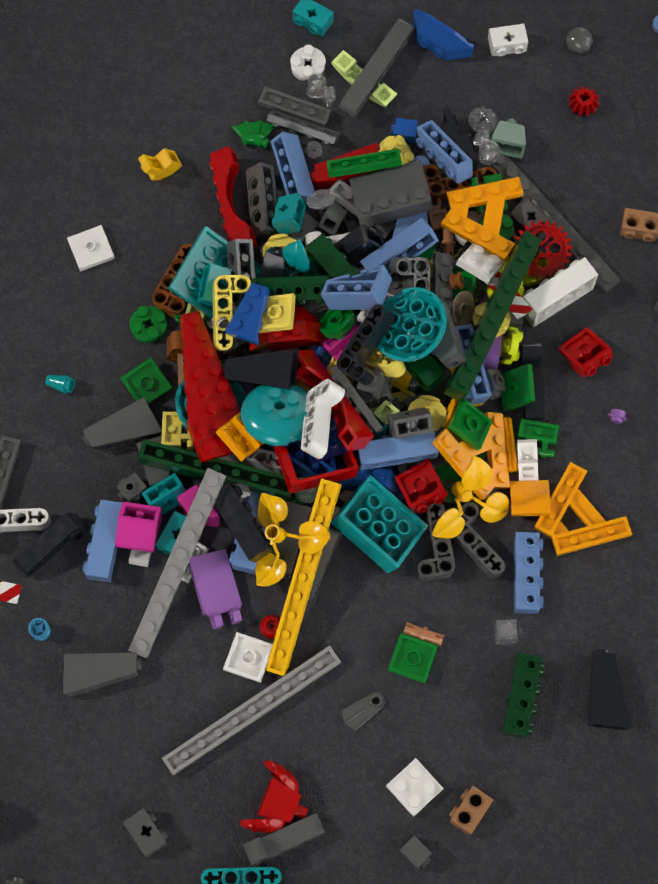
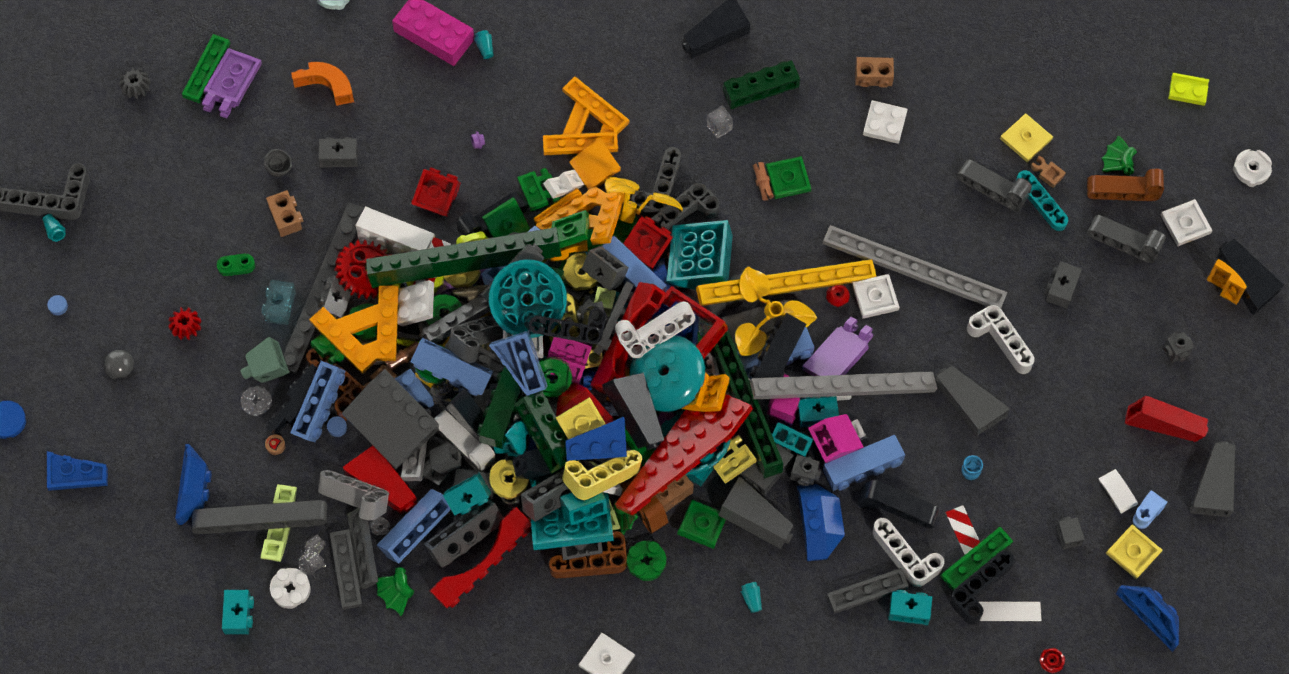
camera: 125 degrees left, 5 degrees down
(85, 475) = (820, 521): none -> blue wedge
(131, 739) = (1003, 340): none -> white beam
(161, 165) = (484, 648): yellow brick -> none
(278, 802) = (971, 204): red torso -> none
(320, 199) = (426, 474): clear gear -> none
(350, 136) = (368, 498): none -> light grey beam
(362, 710) = (854, 192): dark grey piece -> none
(364, 163) = (375, 459): green plate -> none
(396, 142) = (341, 448): light yellow plate -> none
(406, 129) = (311, 456): blue brick -> none
(416, 853) = (933, 91): dark grey brick -> none
(434, 113) = (275, 444): none -> medium nougat tile
(456, 281) = (448, 308): dark orange bush -> none
(488, 150) = (293, 367): clear piece -> none
(508, 40) = (148, 418): white brick -> none
(527, 573) = (660, 133): medium blue brick -> none
(561, 187) = (280, 312): none -> clear light blue brick
(617, 166) = (235, 264): none -> green plate

